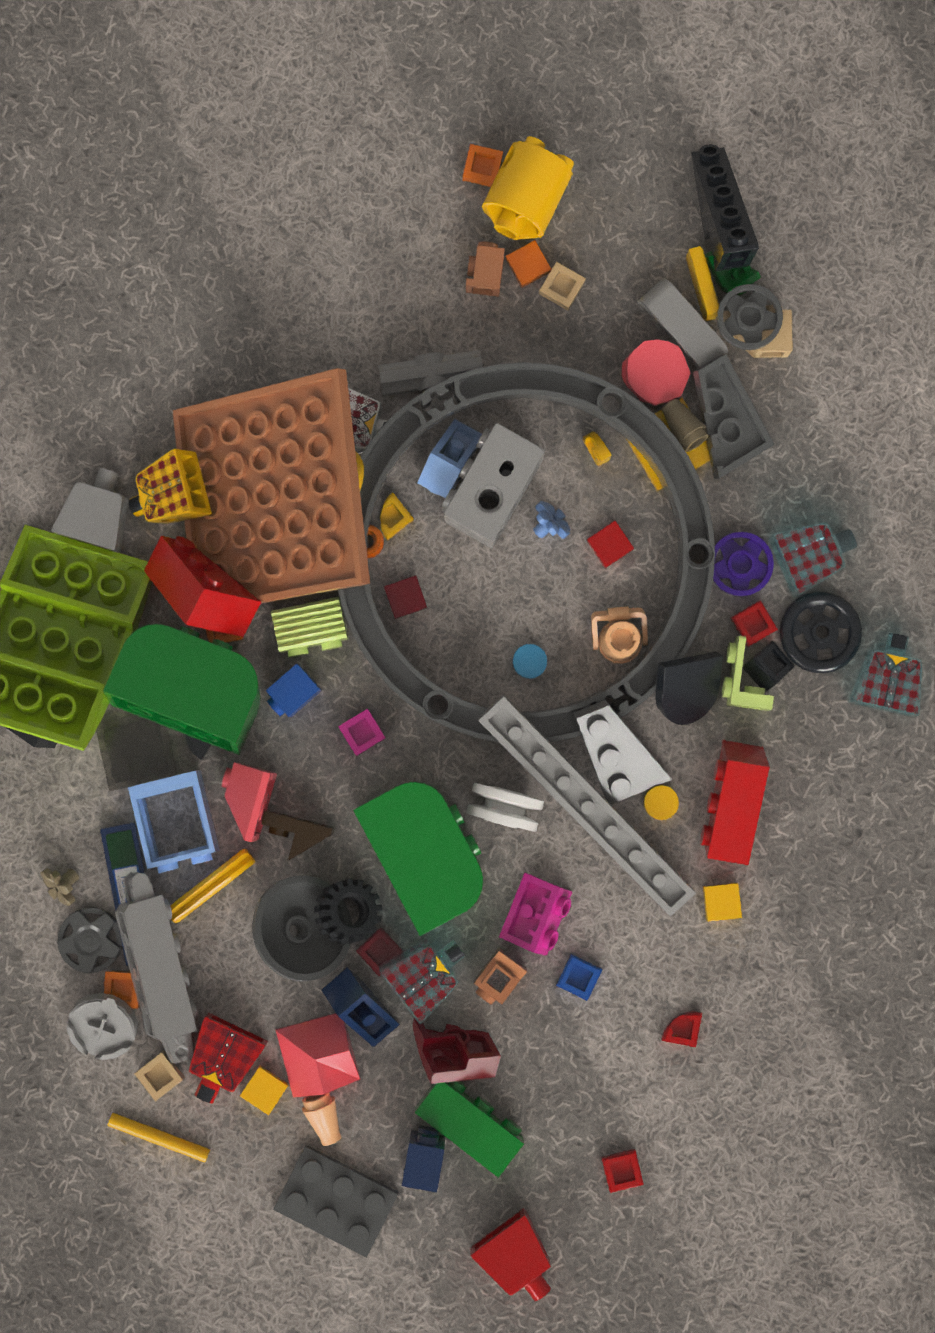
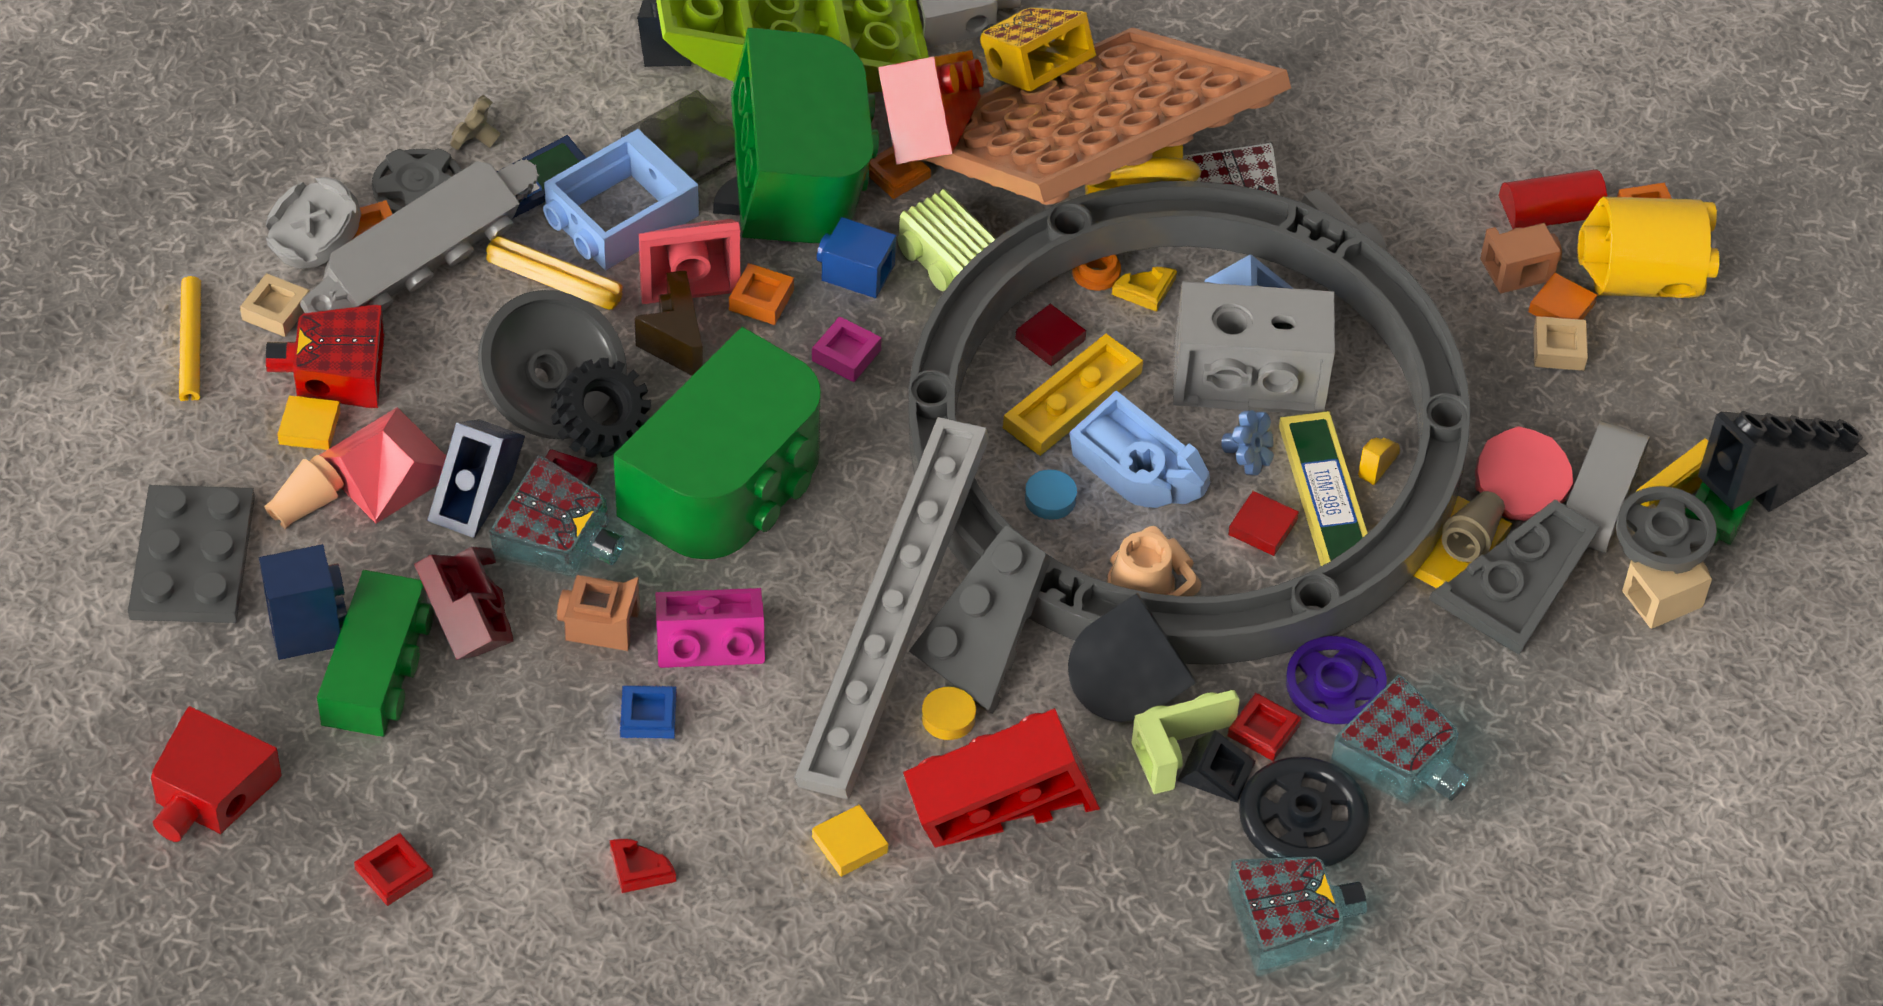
camera: 60 degrees right, 35 degrees down
(292, 764) = (761, 294): none -> orange plate
(444, 219) = (1552, 198): none -> red brick
(462, 609) = (1072, 394): none -> yellow plate
(505, 807) = (839, 513): white wheel -> none
(520, 600) = (1138, 456): none -> light blue piece
(607, 494) = (1323, 483): none -> tile

